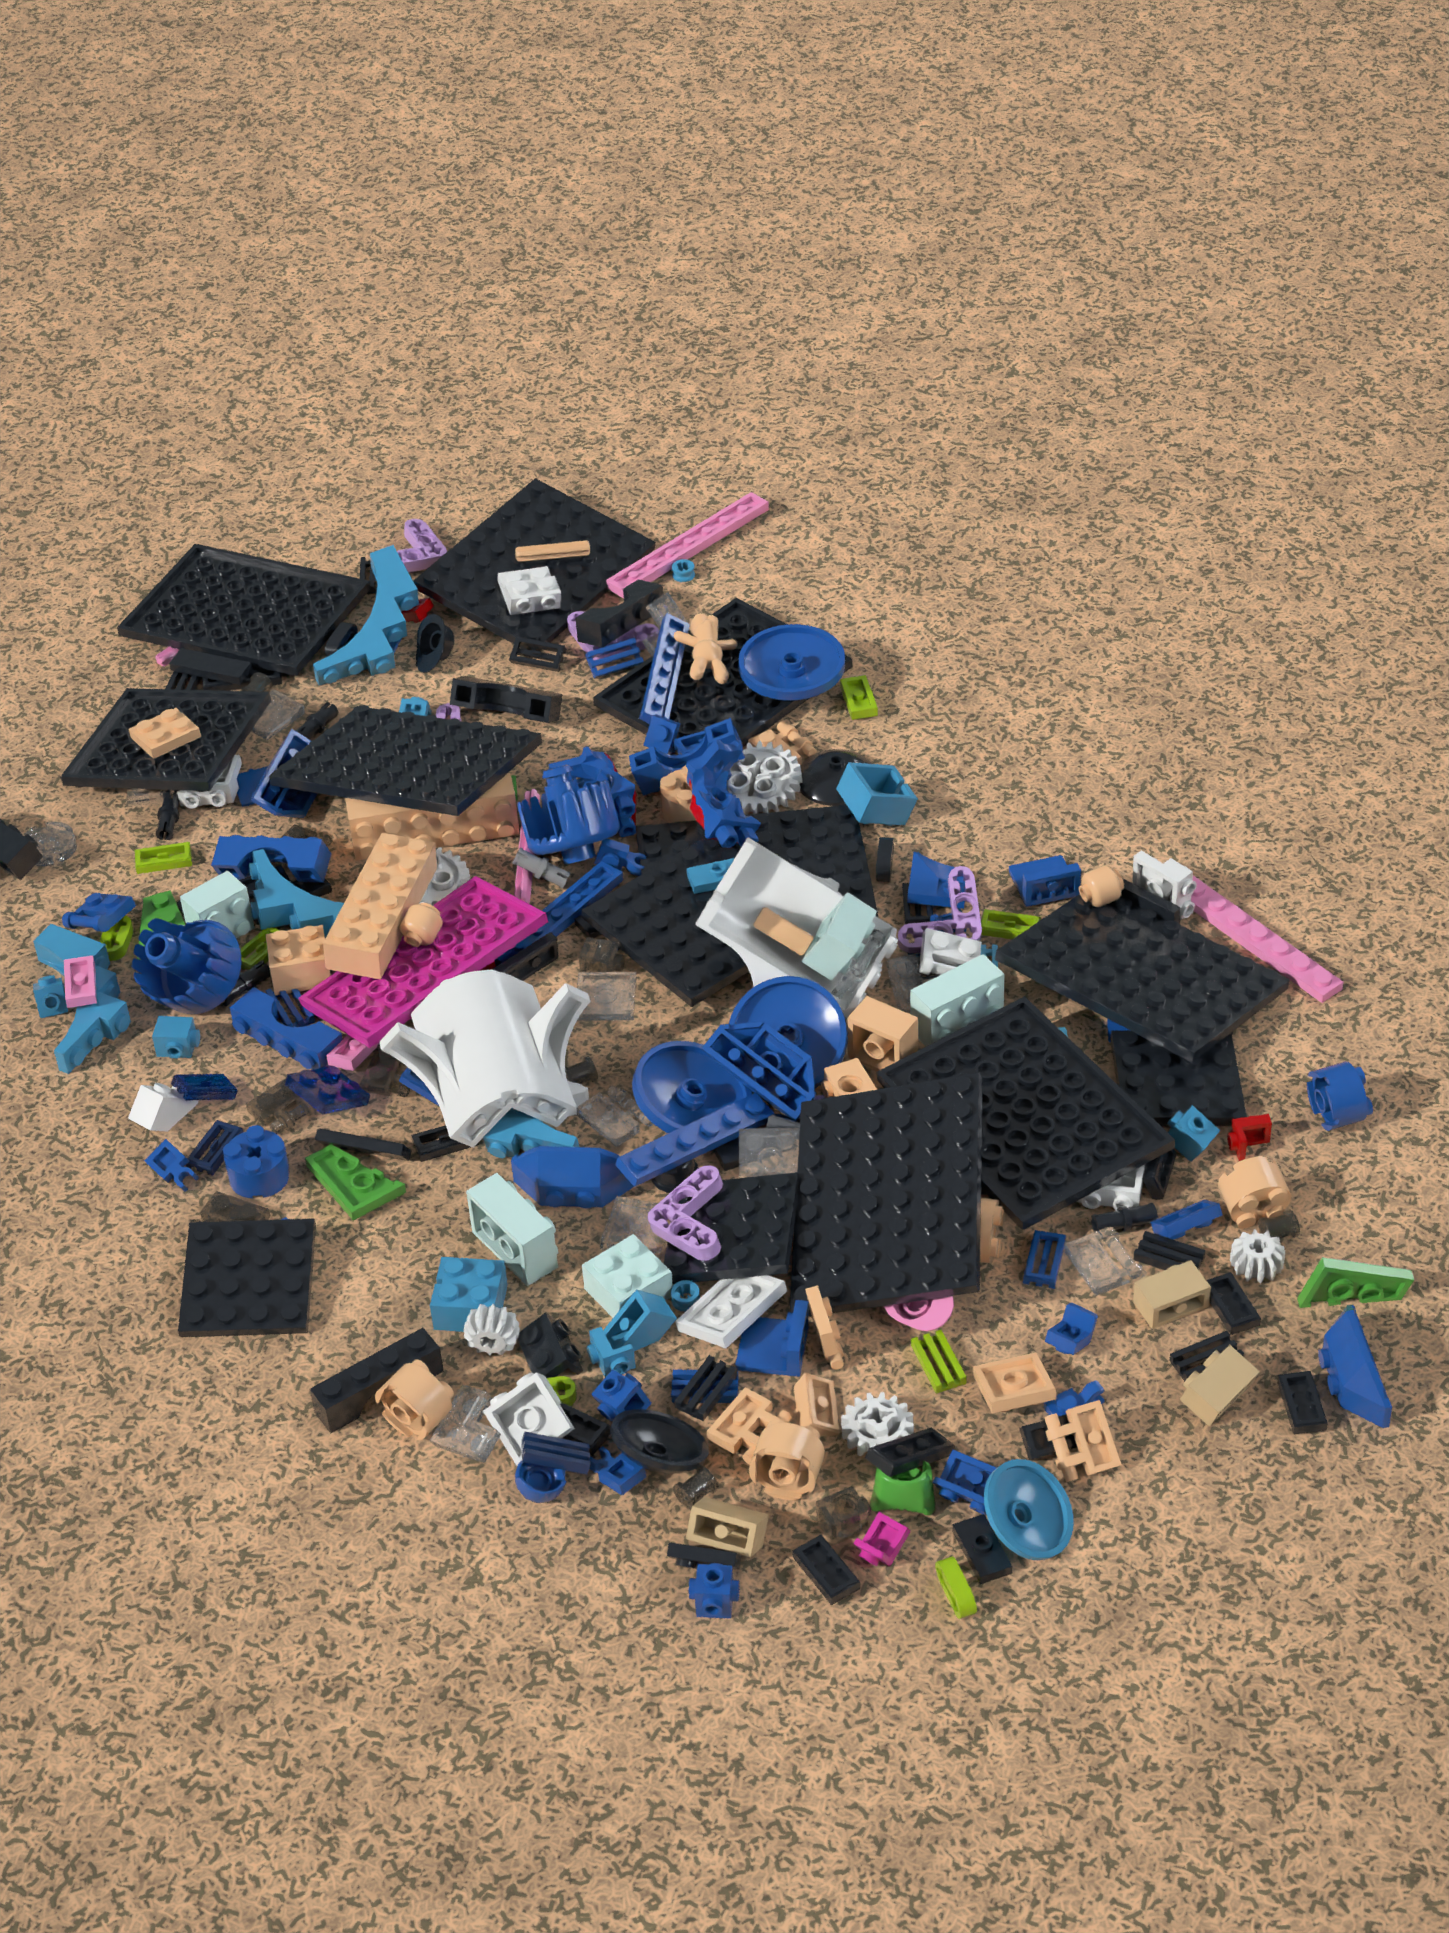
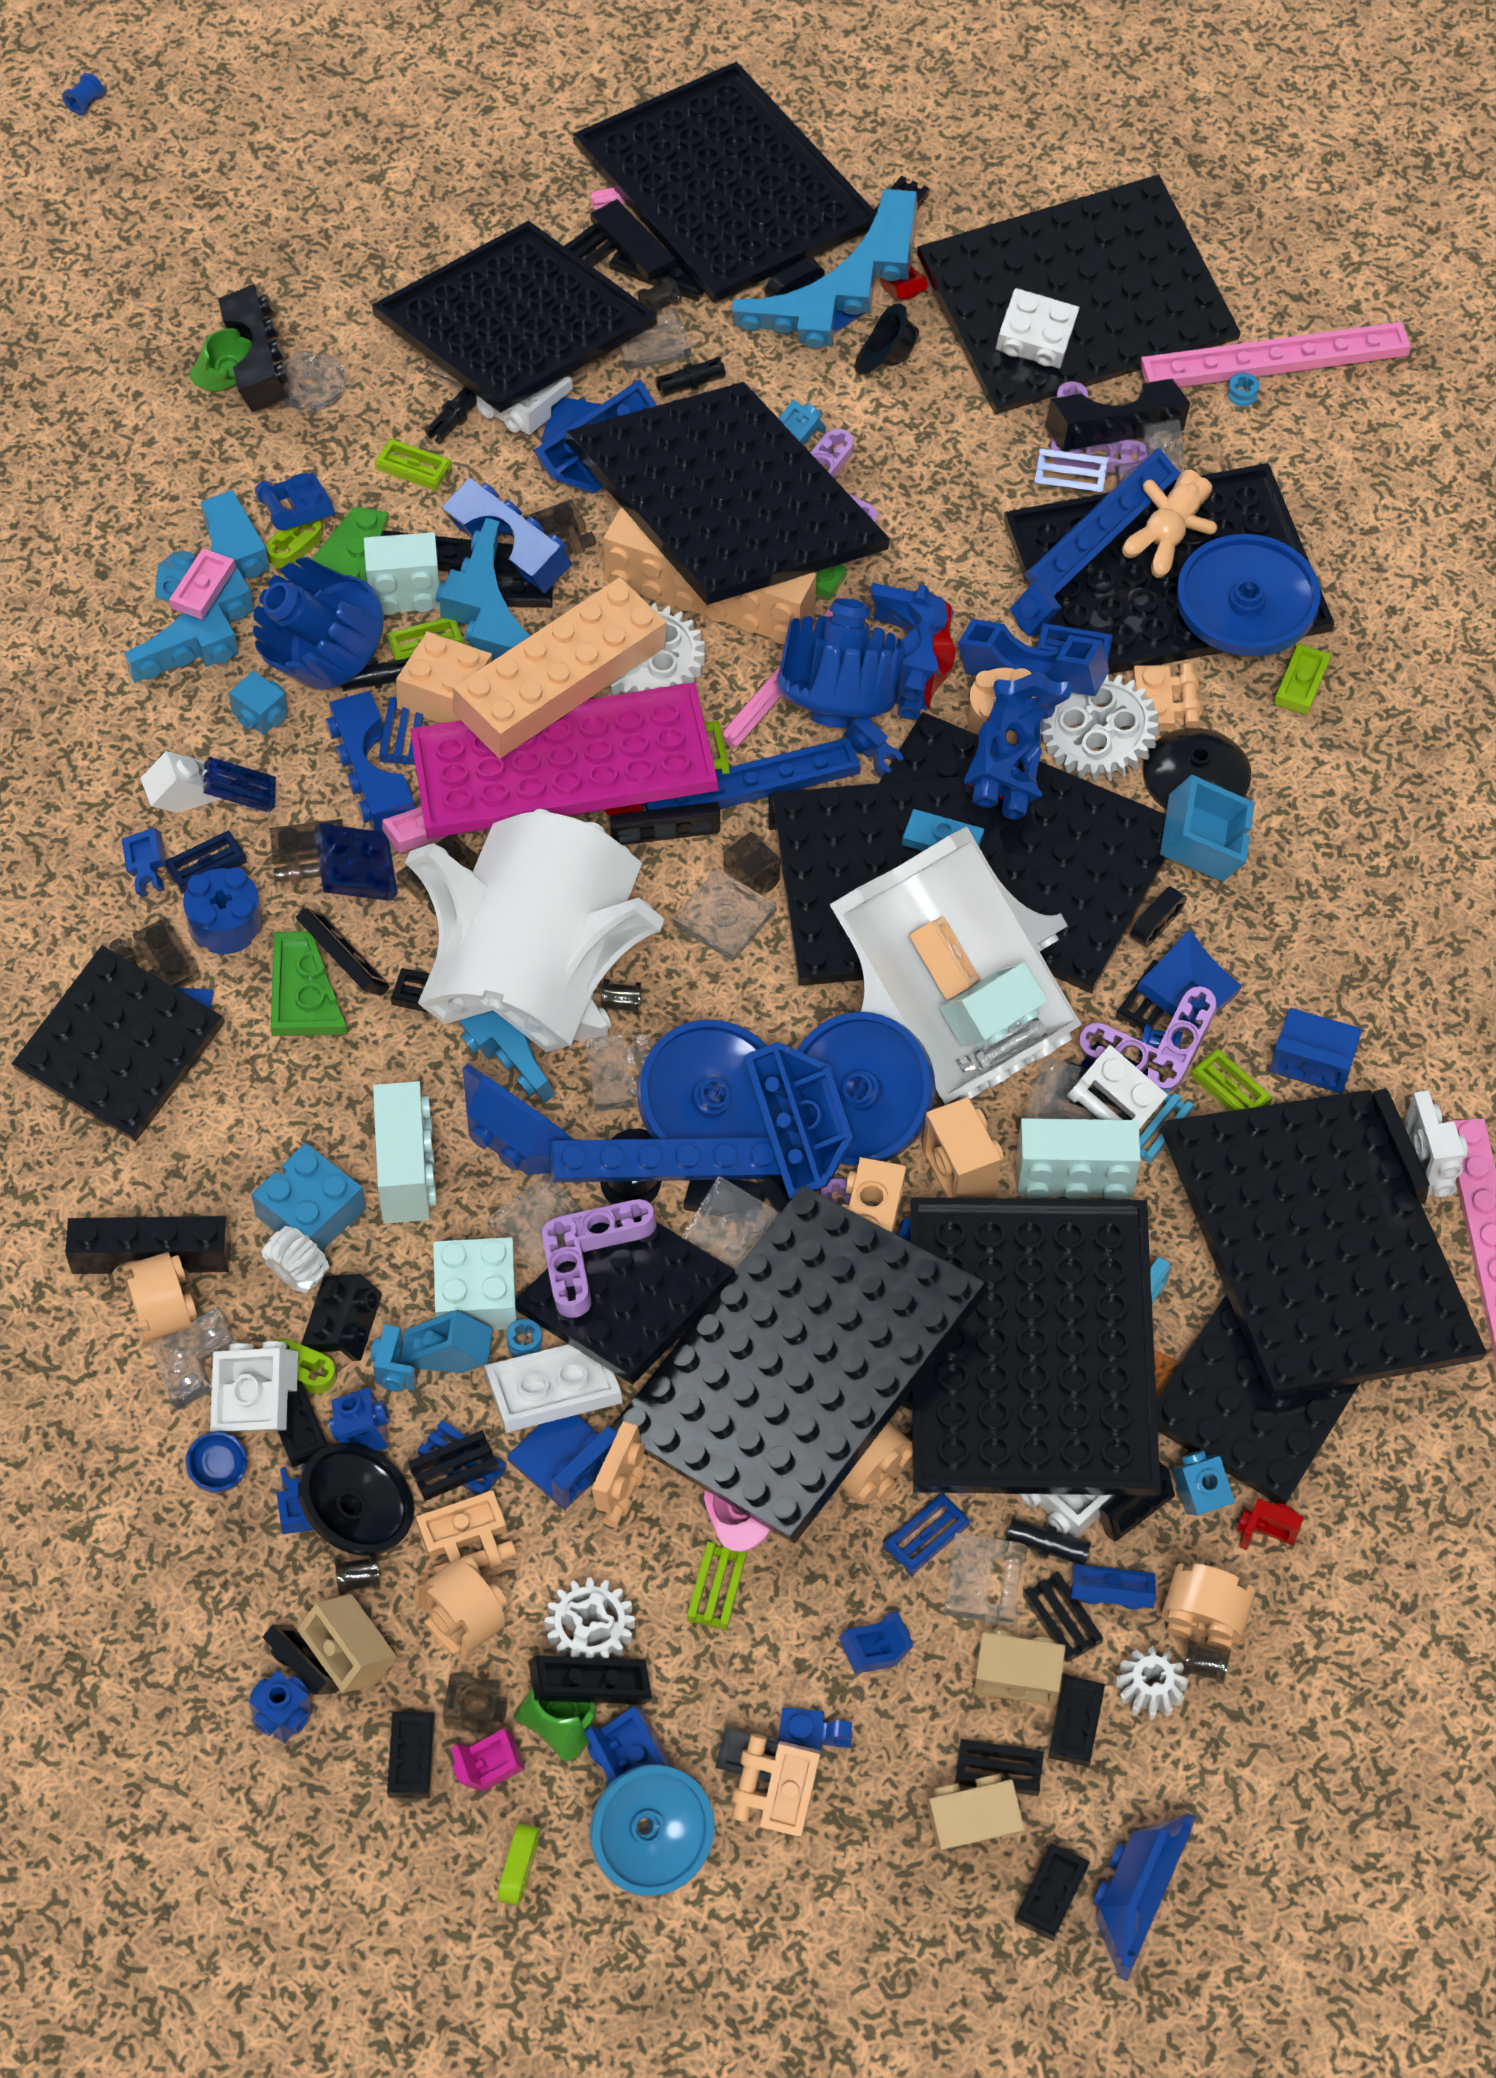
camera: 30 degrees right, 15 degrees up
(164, 732) = (509, 309): light nougat plate -> none
(421, 924) = (581, 717): light nougat head -> none
(425, 545) = (969, 207): lavender beam -> none
(515, 699) = (885, 437): black arch -> none
(541, 867) = (776, 709): light grey pin -> none
(552, 551) = (1102, 288): light nougat axle -> none
(555, 1453) = (249, 1443): dark blue tile -> none
(557, 659) = (1009, 434): black tile -> none
(816, 1404) = (553, 1557): light nougat slope -> none
(982, 1549) = (575, 1852): black plate -> none
(1014, 1383) = (766, 1667): light nougat plate -> none
(1101, 886) = (1356, 1105): light nougat head -> none
(1339, 1095) = (1405, 1543): blue brick -> none
(1342, 1280) = (1215, 1781): bright green wing -> none

